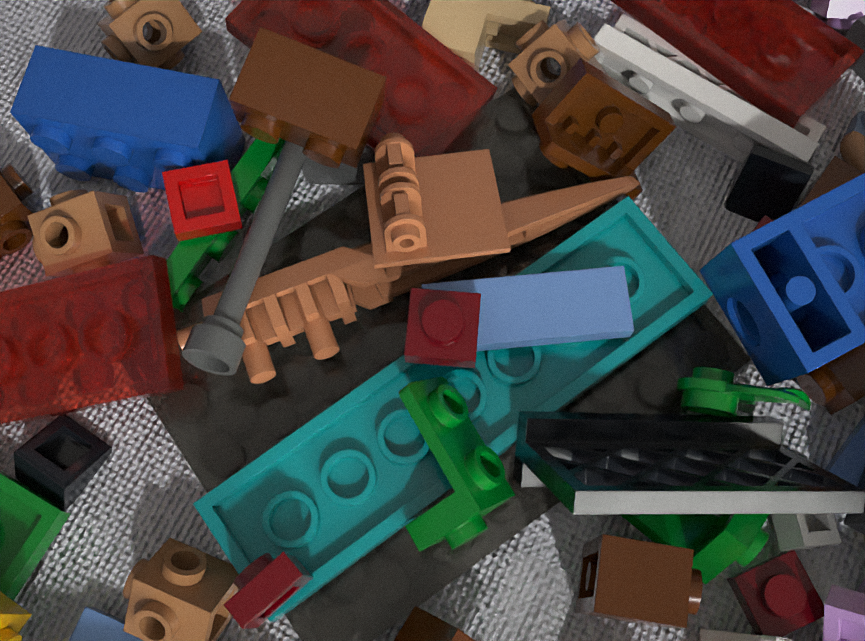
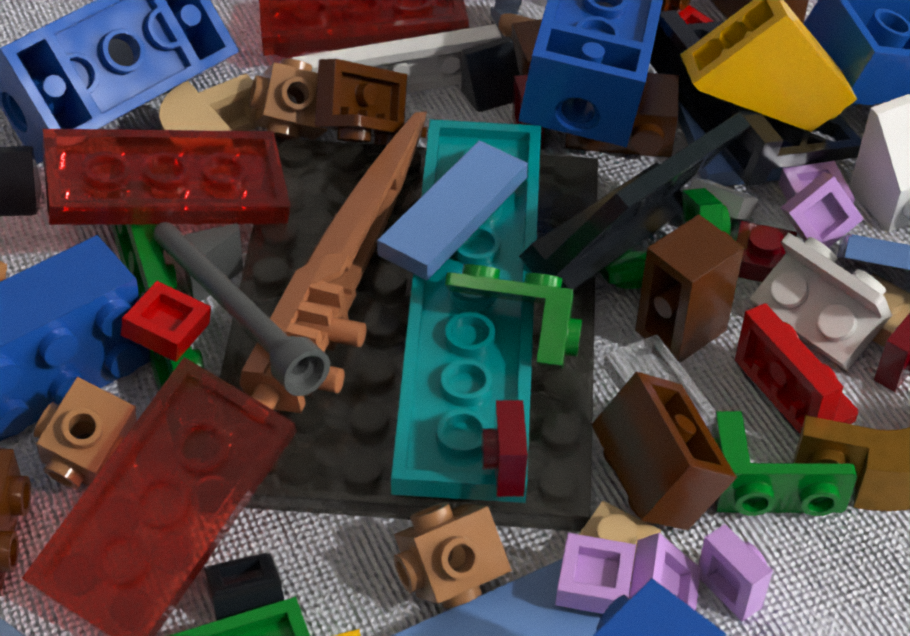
camera: 55 degrees left, 25 degrees down
(307, 99) = (176, 198): reddish brown brick -> none
(432, 205) = (323, 202): nougat hinge -> none
(442, 328) = (424, 241): dark red plate -> none
(715, 394) = (610, 166): green plate -> none

